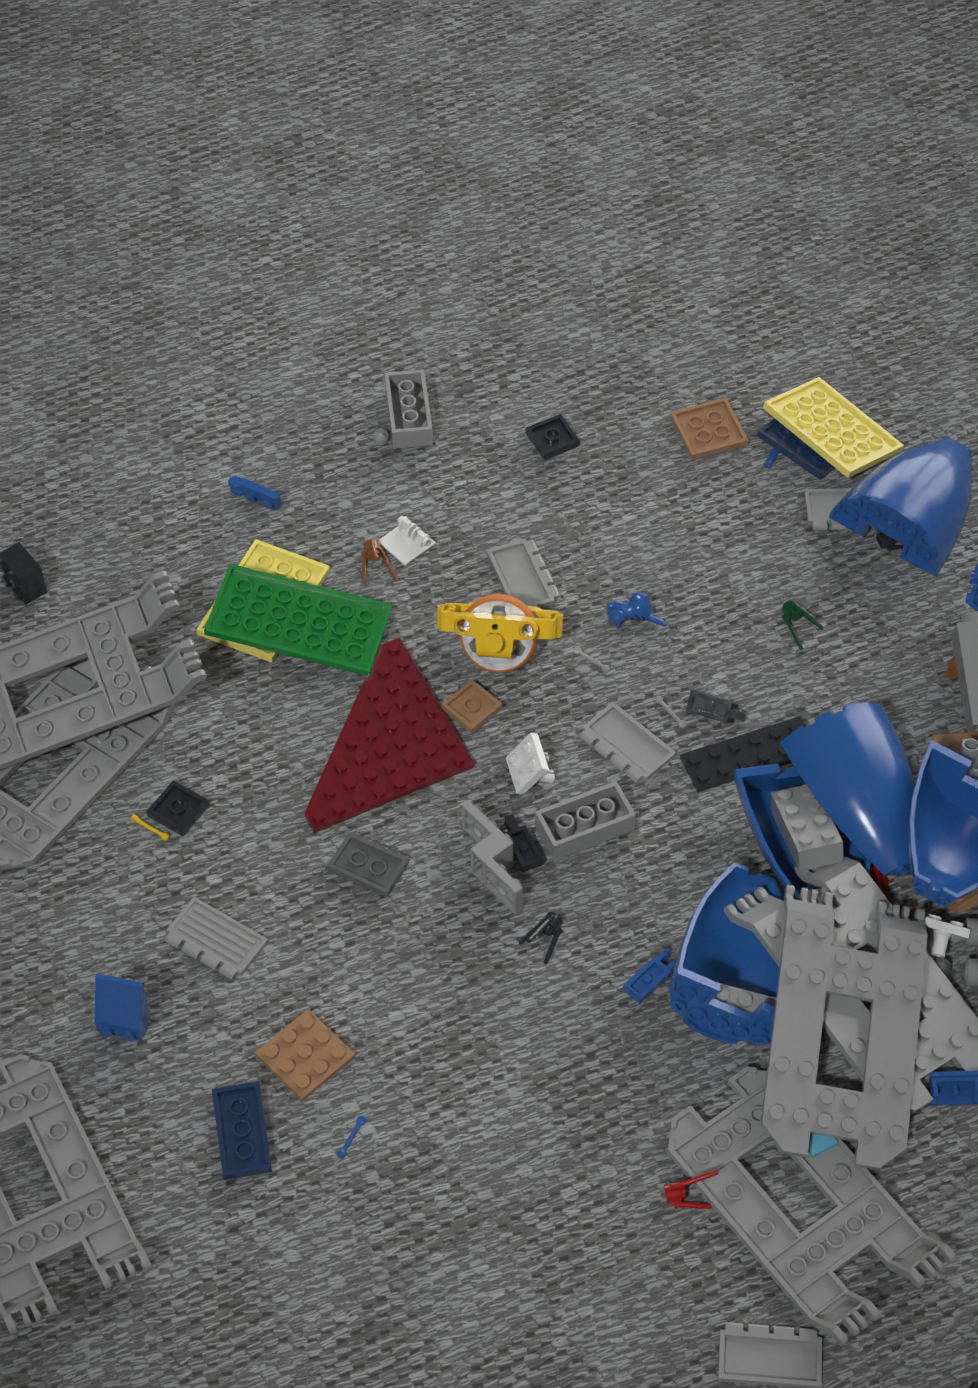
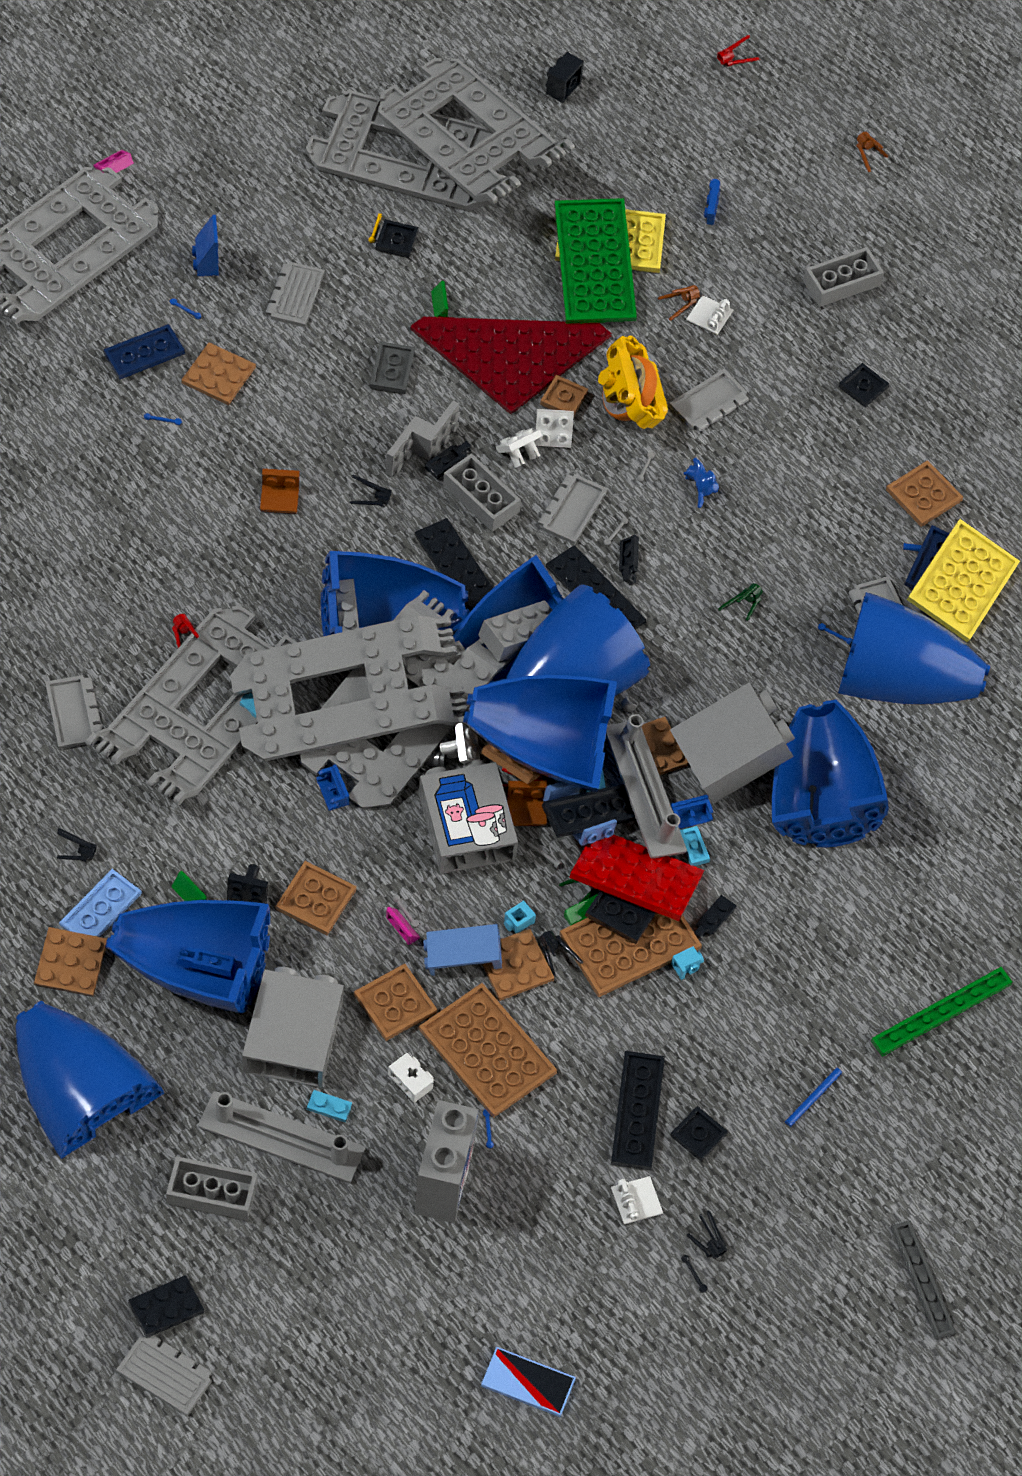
camera: 65 degrees right, 5 degrees up
(55, 423) = (726, 55): none -> red plant
(173, 1077) = (174, 302): none -> blue hinge
(230, 338) = (866, 141): none -> dark orange plant
(289, 788) = (439, 300): none -> green slope
(512, 1032) = (280, 491): none -> dark orange bracket
(517, 722) = (555, 428): none -> white plate
(667, 877) = (454, 559): none -> black plate
(874, 547) = (823, 627): none -> blue hinge

